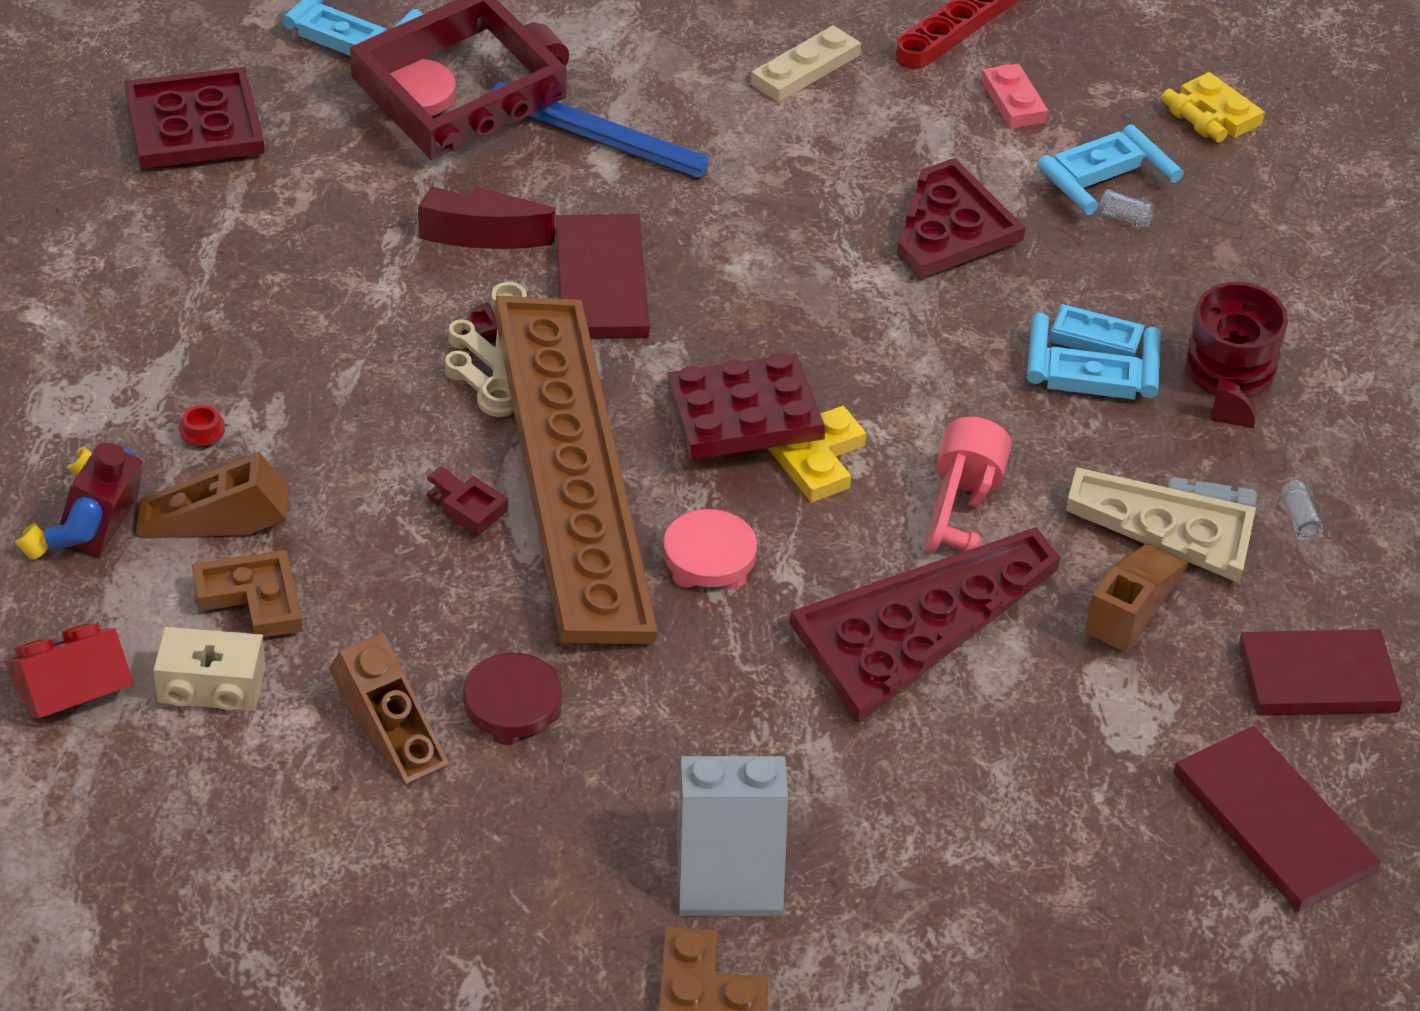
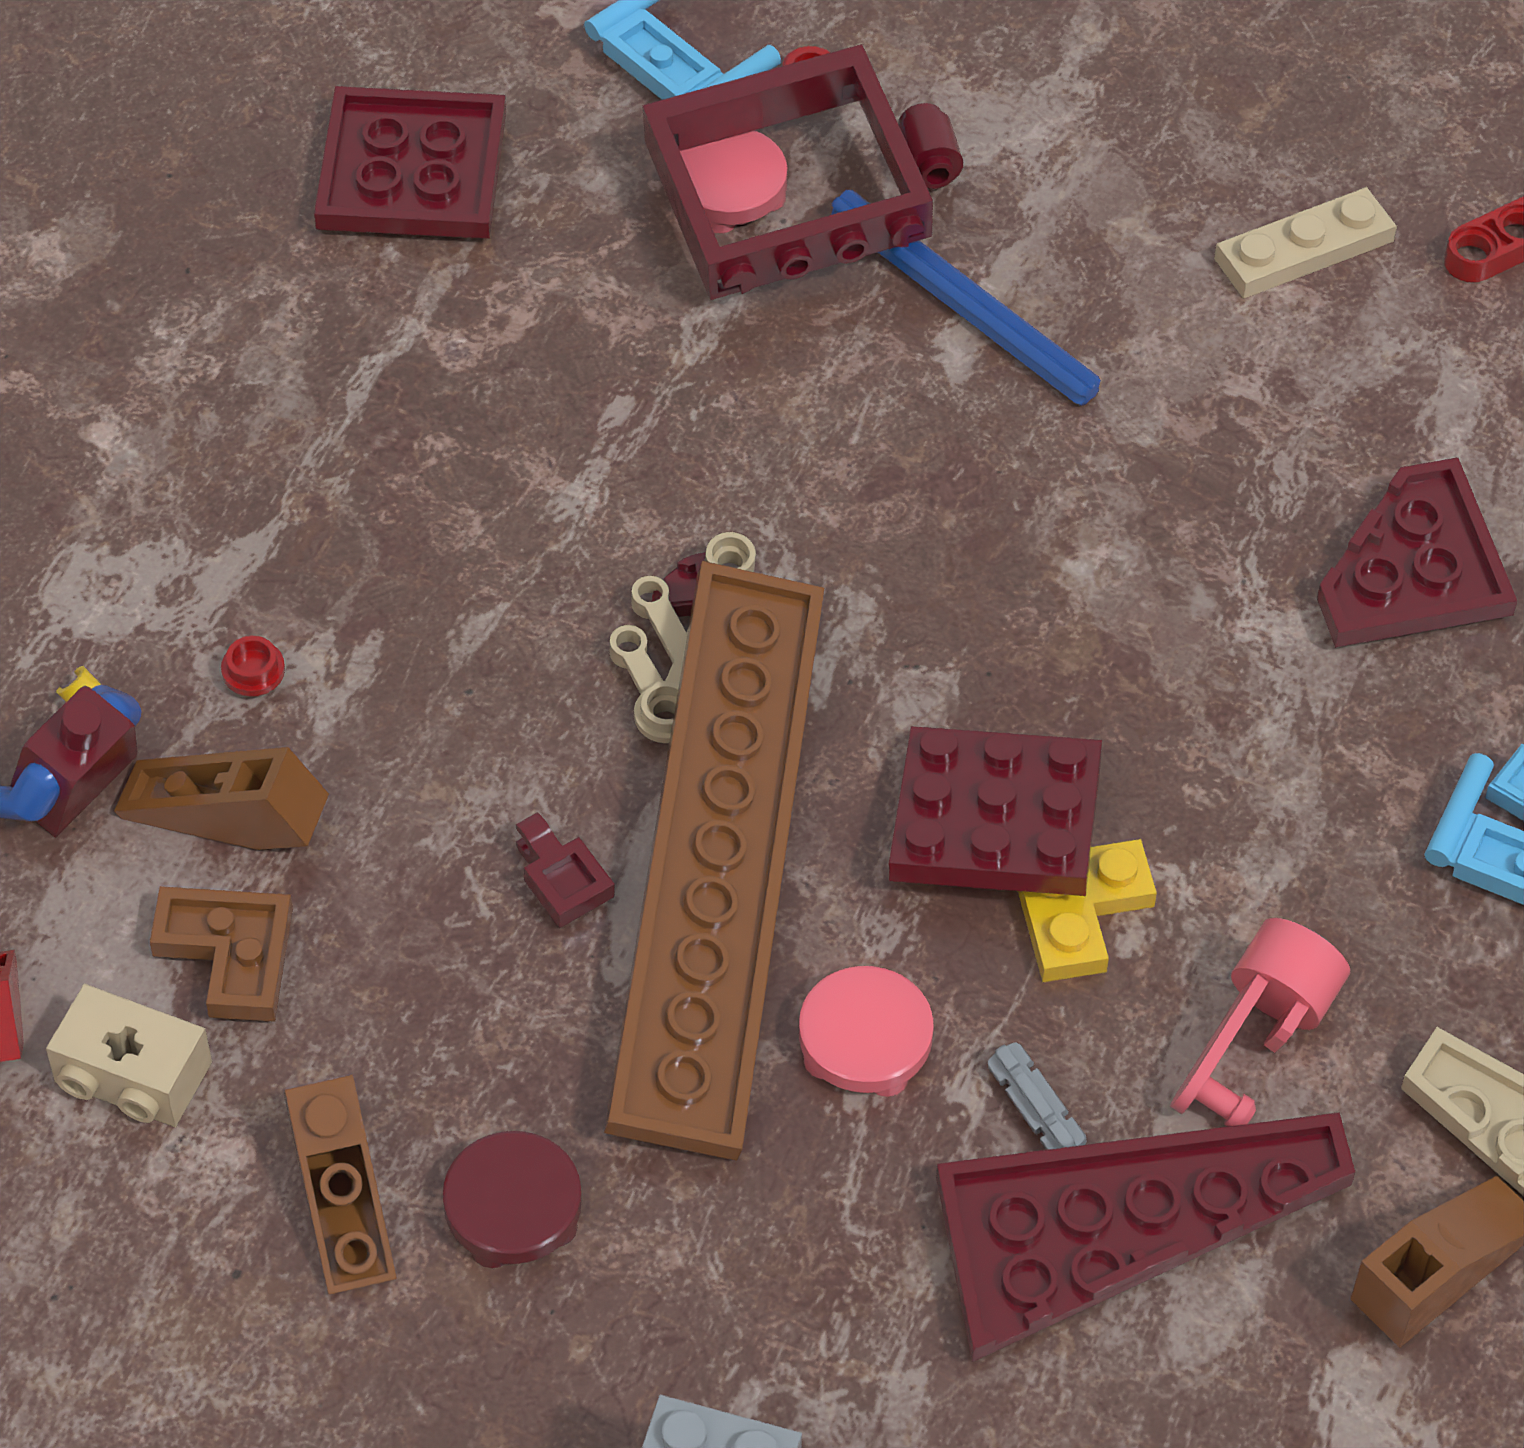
camera: 20 degrees right, 10 degrees up
(484, 220) = (745, 418): dark red slope -> none
(605, 269) = (883, 539): dark red tile -> none
(834, 563) = (1035, 1098): none -> light grey axle

